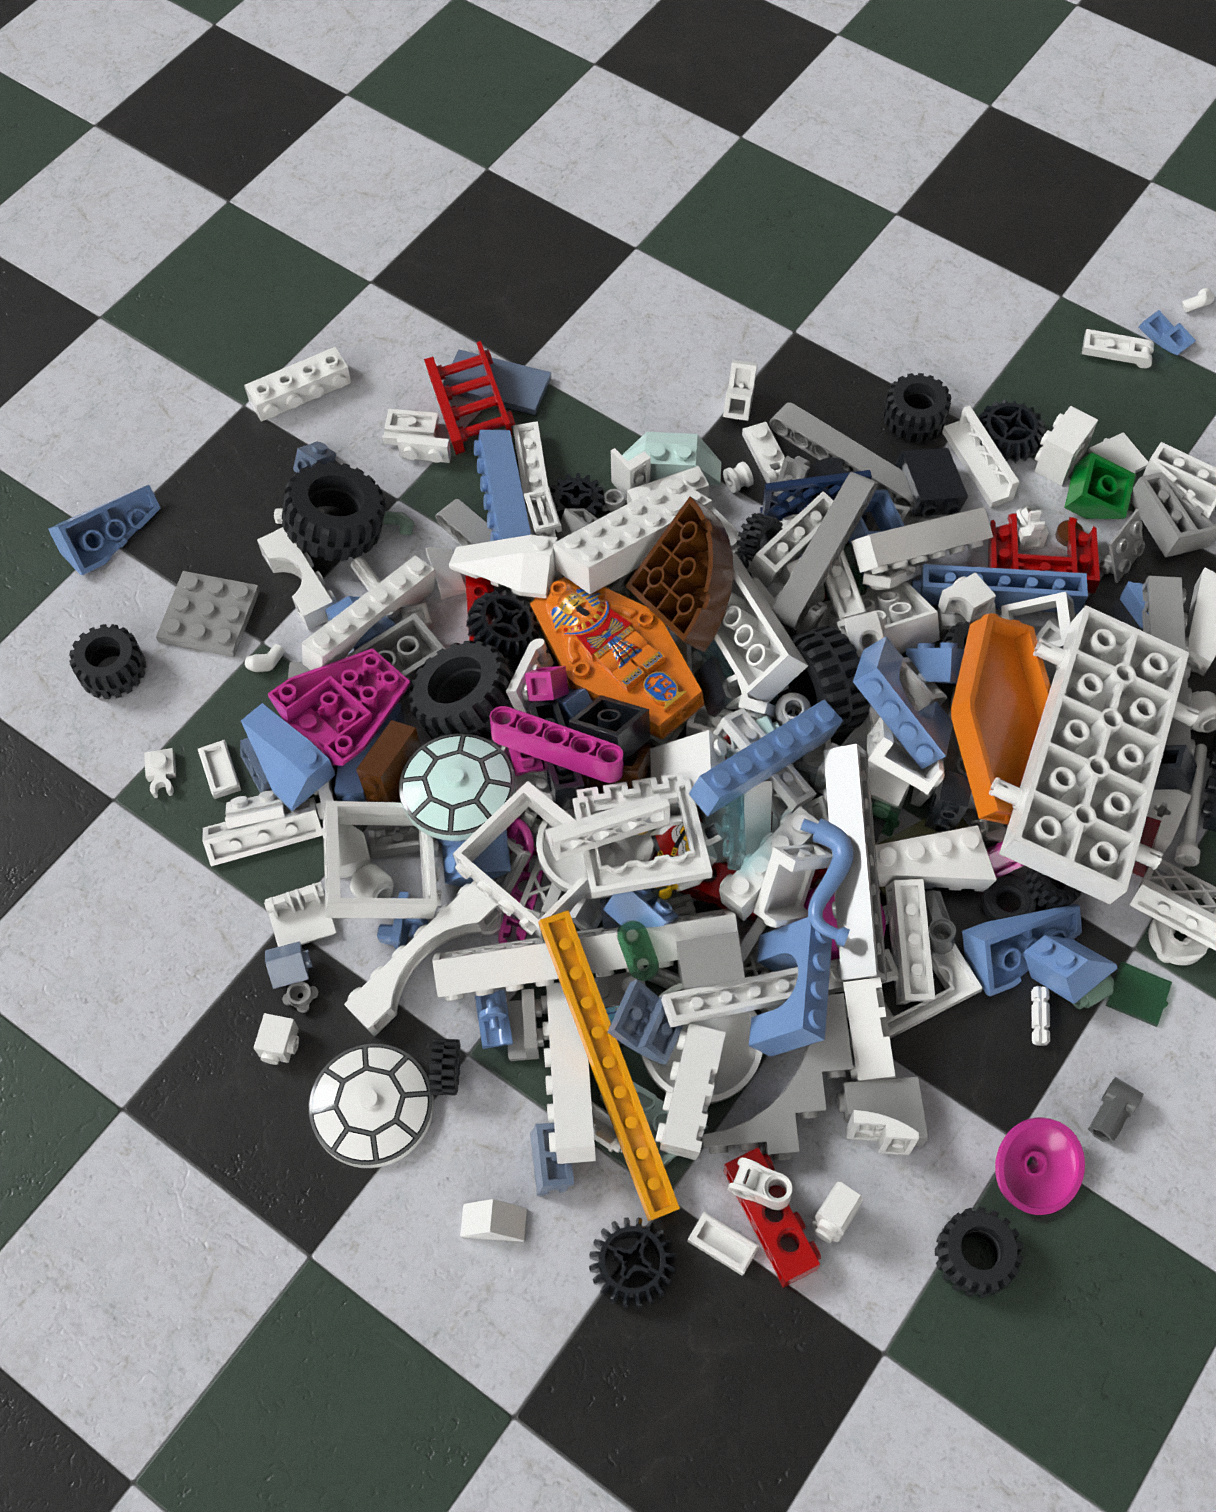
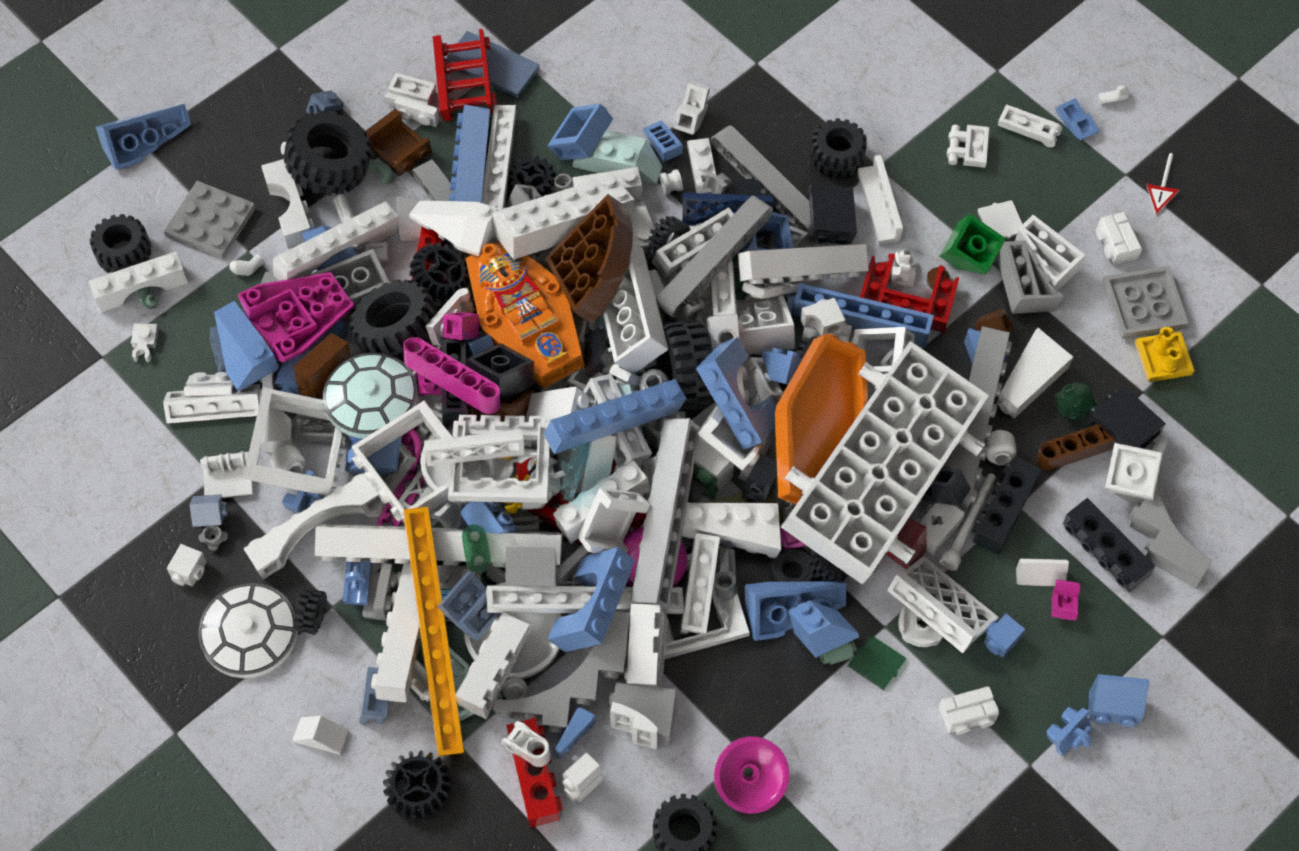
camera: 10 degrees right, 0 degrees up
(112, 713) = (115, 287): none -> white arch
(149, 718) = (146, 298): none -> sand green arm
(219, 769) = (190, 348): white tile -> none
(302, 384) = (326, 38): white brick -> none
(411, 488) = (397, 143): none -> reddish brown panel
(546, 527) = (497, 197): white tile -> none
(630, 473) = (580, 163): white panel -> none
(637, 421) = (580, 132): none -> medium blue window
(719, 446) = (665, 153): none -> medium blue slope
(720, 1115) = (514, 688): none -> white plate
(723, 1243) = (492, 785): white tile -> none
(810, 1145) = (579, 725): none -> medium blue slope
(842, 858) = (655, 501): medium blue animal -> none
(1013, 429) = (915, 189): black gear -> none
(1040, 1016) = (791, 663): white axle -> none
(1064, 445) = (952, 202): white brick -> none
(1066, 381) = (975, 145): none -> white plate
(1118, 1104) = (831, 742): dark grey piece -> none
(1124, 548) = (977, 298): light grey hinge -> none
(1151, 566) = (996, 320): none -> reddish brown panel

